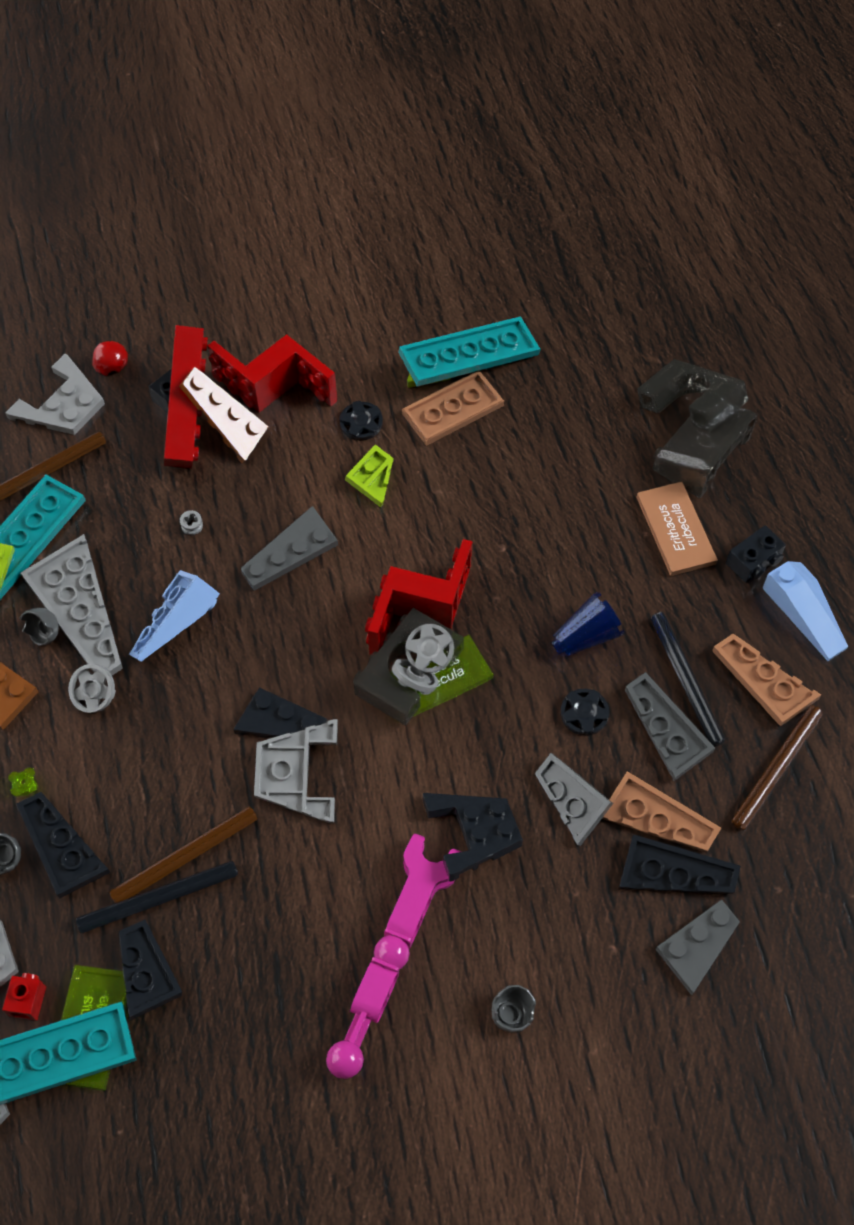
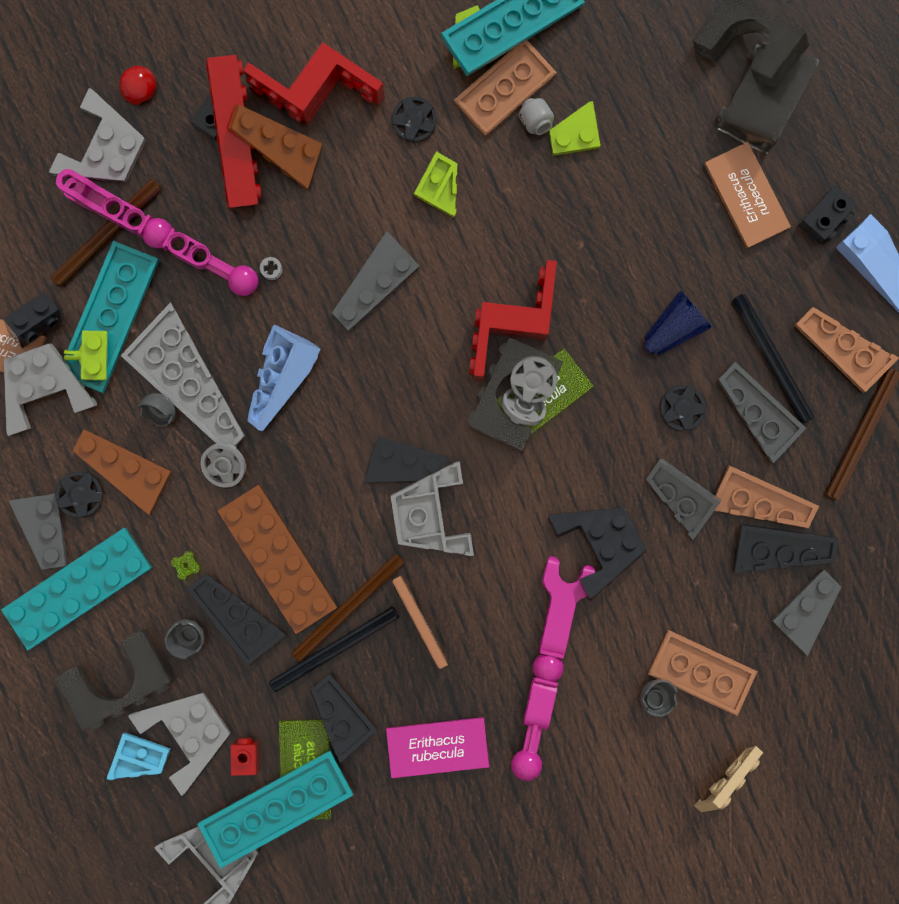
camera: 15 degrees left, 25 degrees up
(87, 470) = (154, 231): none -> dark pink piece
(122, 795) = (277, 559): none -> dark orange plate
(247, 1027) = (437, 747): none -> dark pink tile
(257, 875) = (420, 622): none -> nougat tile
(477, 431) = (536, 116): none -> light grey head
(514, 452) = (576, 132): none -> lime wing
(570, 993) = (702, 672): none -> nougat tile
(587, 1120) = (735, 780): none -> tan wing

